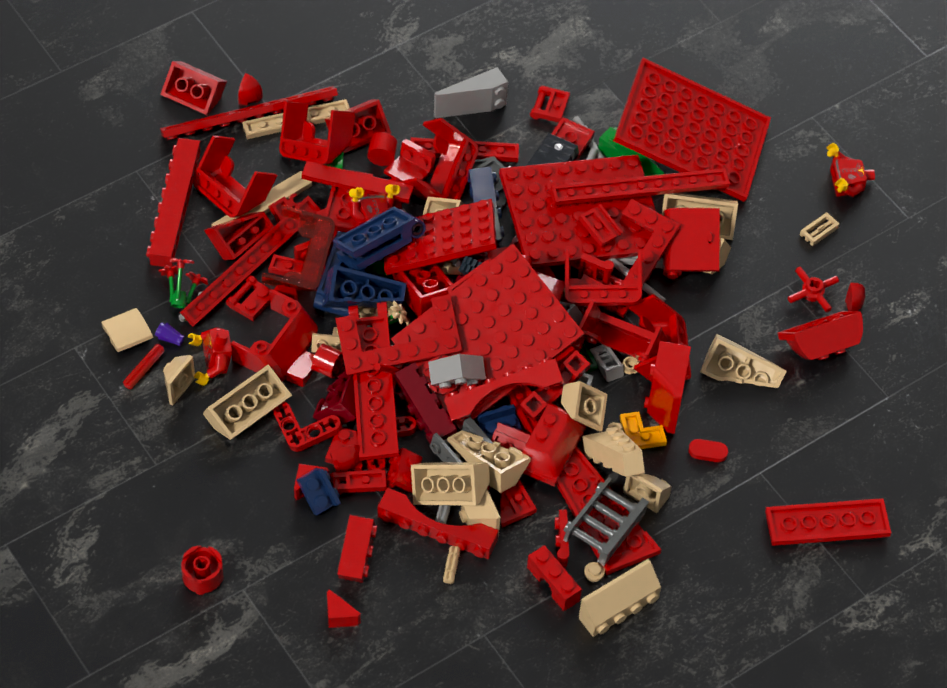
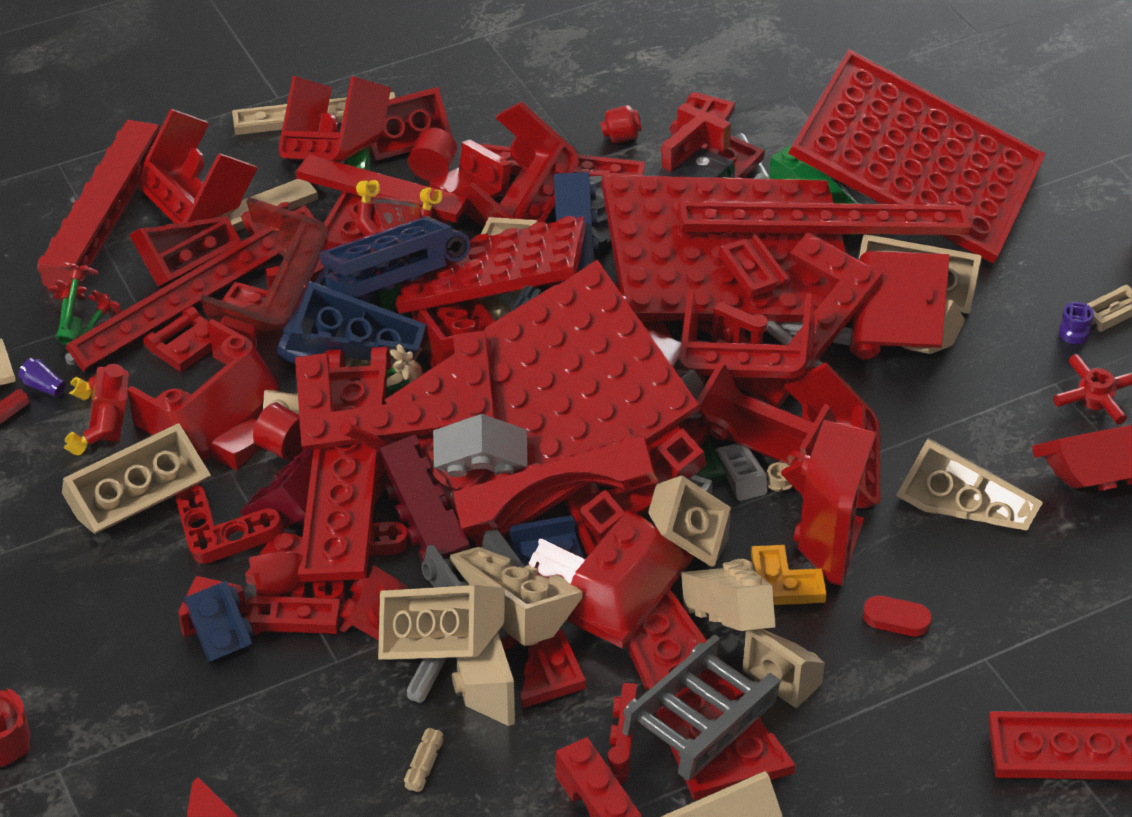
camera: 10 degrees right, 10 degrees down
(178, 376) = (36, 438): tan slope -> none
(193, 87) = (169, 63): red slope -> none
(242, 114) = (230, 101): red plate -> none
(249, 90) = (250, 70): red brick -> none
(357, 548) = (262, 716): red wedge -> none
(472, 95) = (582, 92): light grey slope -> none
(472, 538) = (469, 719): red arch -> none
(499, 115) = (621, 124): none -> red head
(552, 125) = (694, 130): none -> red bracket
(594, 571) = (672, 793): tan plate -> none
(798, 243) = (1076, 322): none -> dark purple wheel

